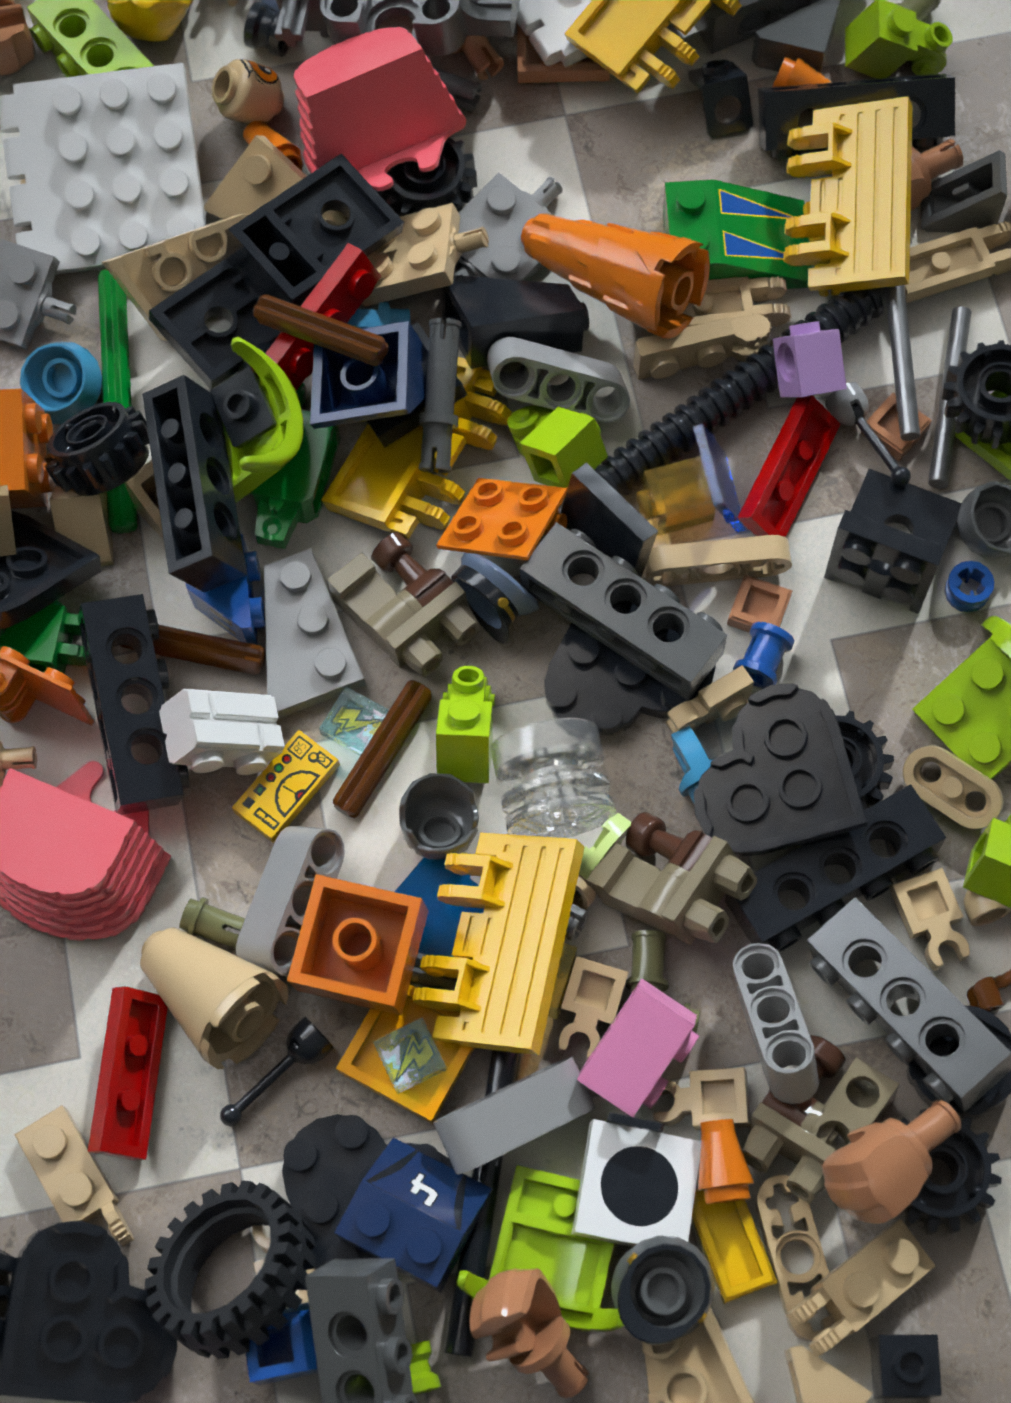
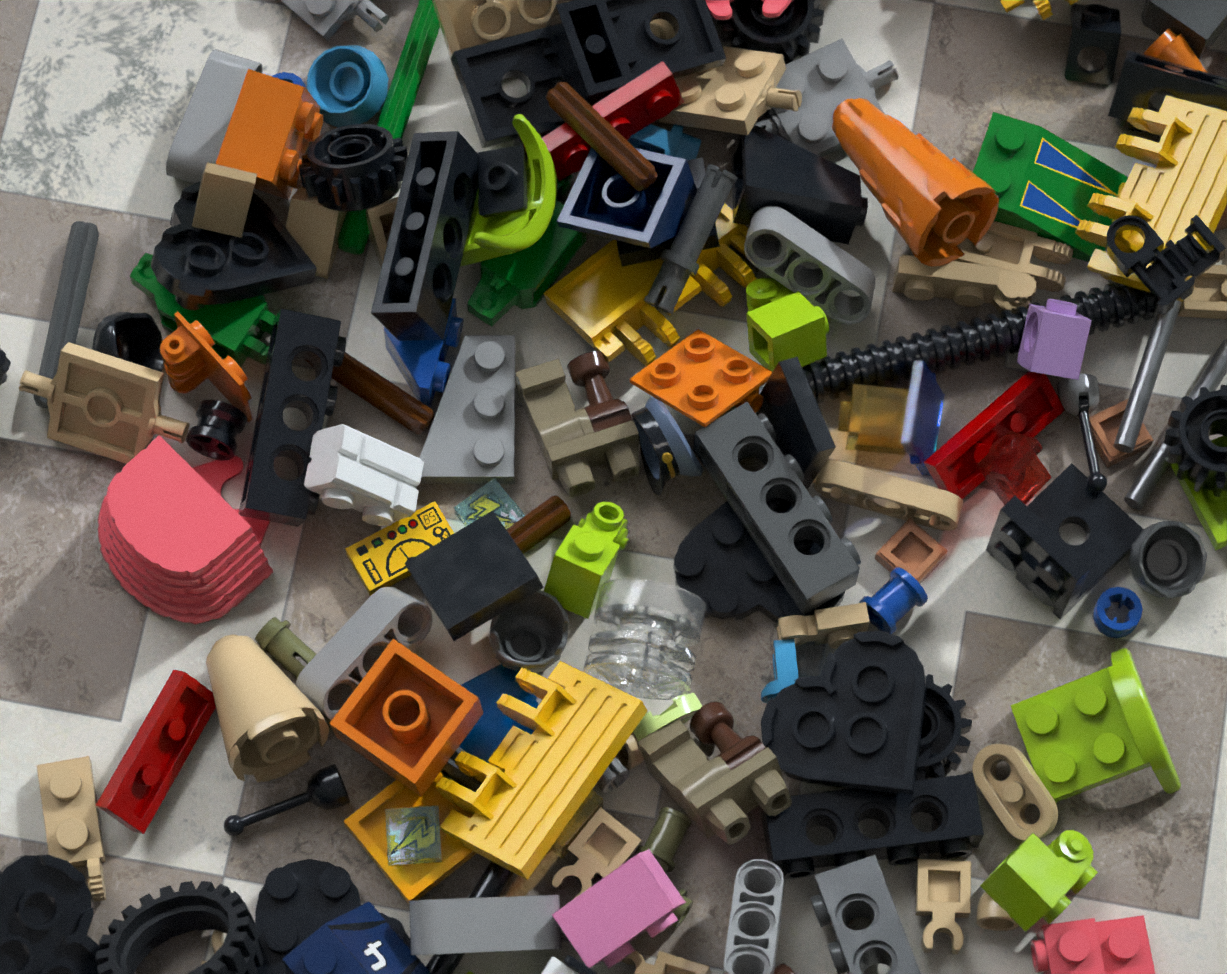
camera: 15 degrees right, 0 degrees up
(63, 743) = (216, 429): none -> black wheel
(365, 784) = (473, 575): none -> black tile
(821, 491) = (1014, 467): none -> clear red bracket
(889, 254) = (1169, 266): none -> black piece

